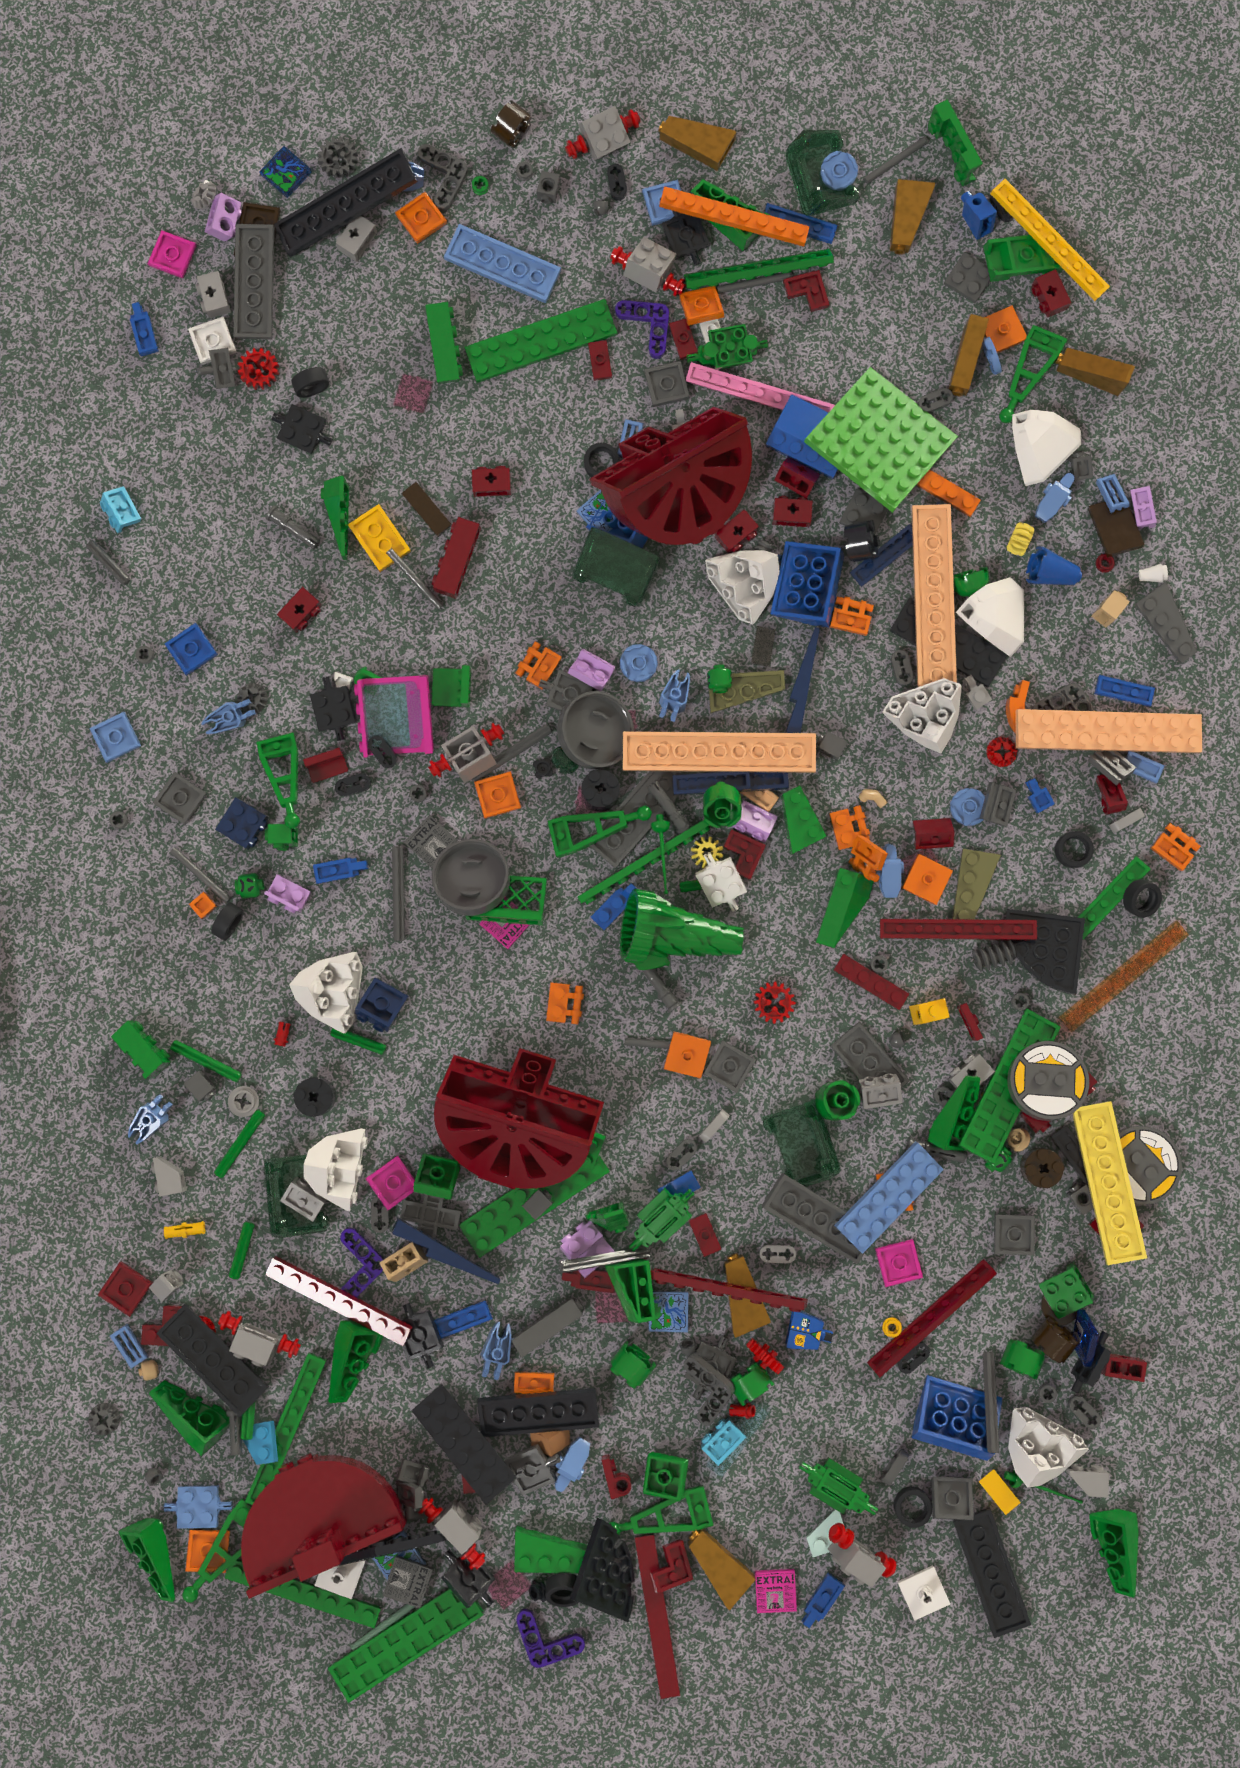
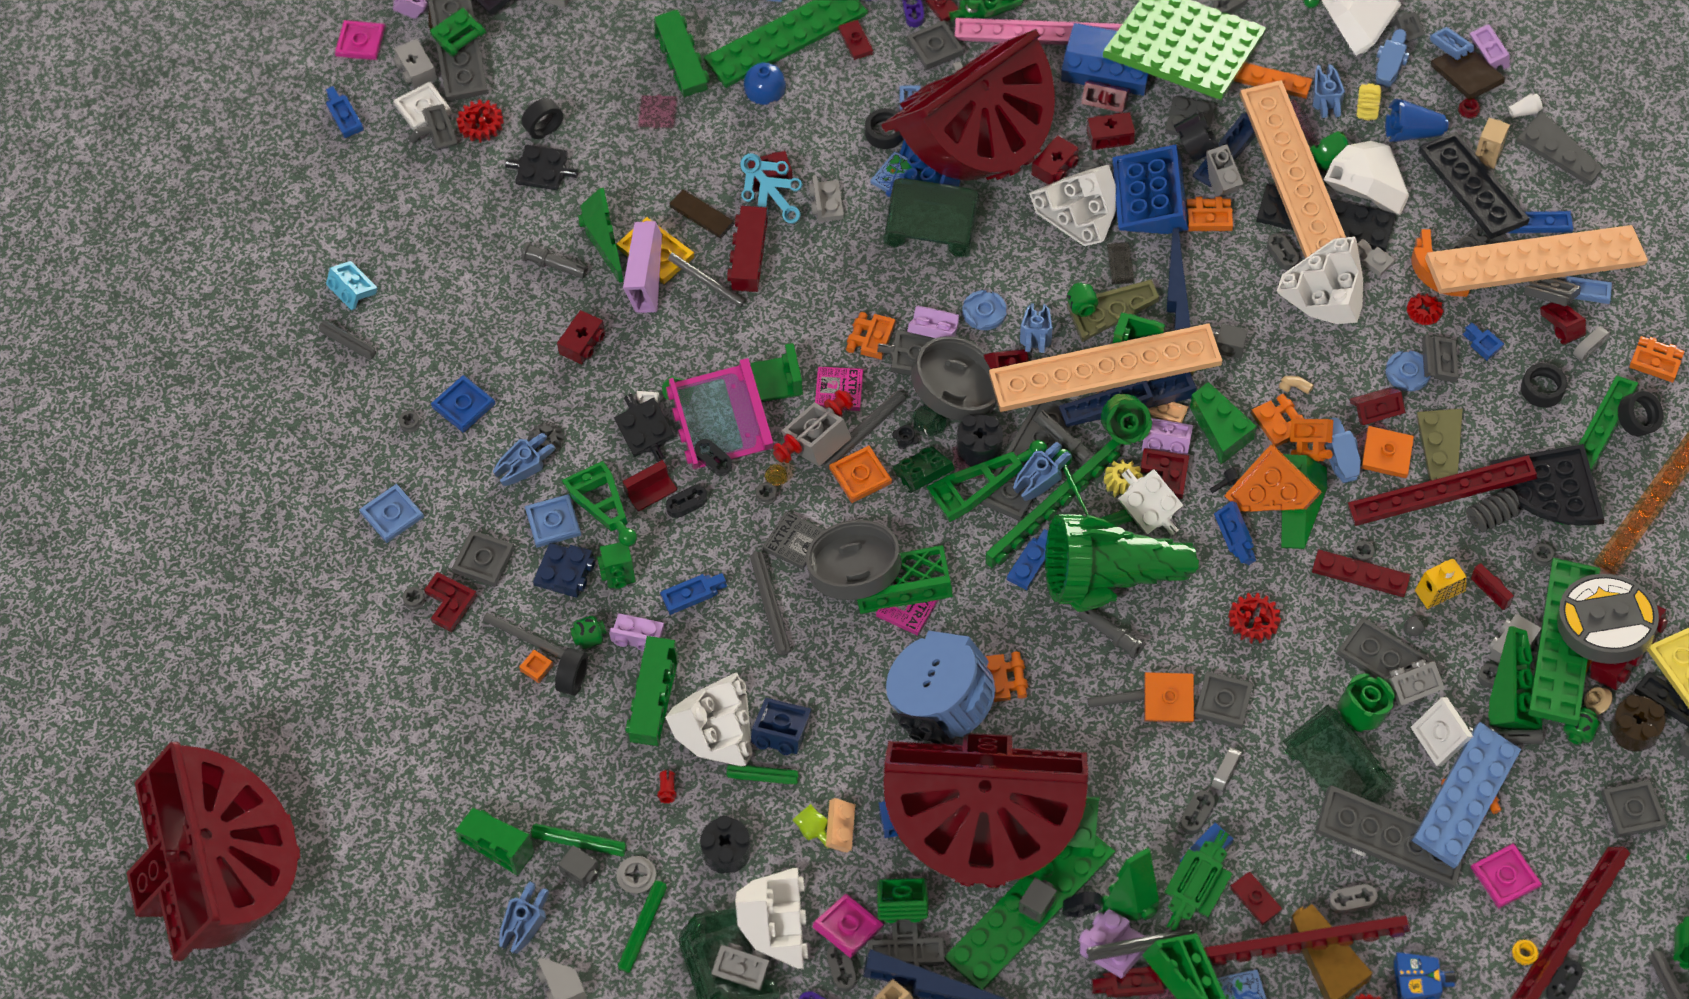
camera: 10 degrees left, 25 degrees down
(151, 830) = (454, 597): none -> dark red plate
(242, 776) = (552, 520): none -> medium blue tile
(251, 268) = (455, 27): none -> green plate
(286, 954) = (652, 691): none -> green wedge
(363, 557) = (643, 267): none -> lavender slope
(386, 1094) = (812, 824): none -> lime piece
(406, 1099) = (840, 825): none -> light nougat plate
(429, 780) = (776, 474): none -> clear yellow plate
(487, 500) = (768, 185): none -> medium azure plant
(500, 708) = (843, 379): none -> dark pink tile
(507, 1014) = (940, 687): none -> medium blue piece
(510, 389) = (764, 83): none -> blue cylinder
(535, 521) = (827, 200): none -> light grey bracket
(548, 804) = (923, 468): none -> dark green plate
(571, 1213) = (1082, 904): none -> black beam
(640, 836) = (1040, 472): none -> medium blue hinge
(643, 720) = (1005, 358): none -> dark red slope
(752, 716) = (1134, 327): none -> green bracket
(782, 923) = (1235, 532): none -> blue hinge
(794, 871) = (1231, 478): none -> black hand
(823, 894) = (1273, 485): none -> orange plate
(874, 581) = (1223, 171): none -> light grey slope
(888, 1139) = (1441, 731): none -> white tile
(959, 546) = (1304, 122): none -> clear pink piece
(988, 519) = (1327, 91): none -> medium blue hinge
(1081, 644) = (1474, 185): none -> black plate

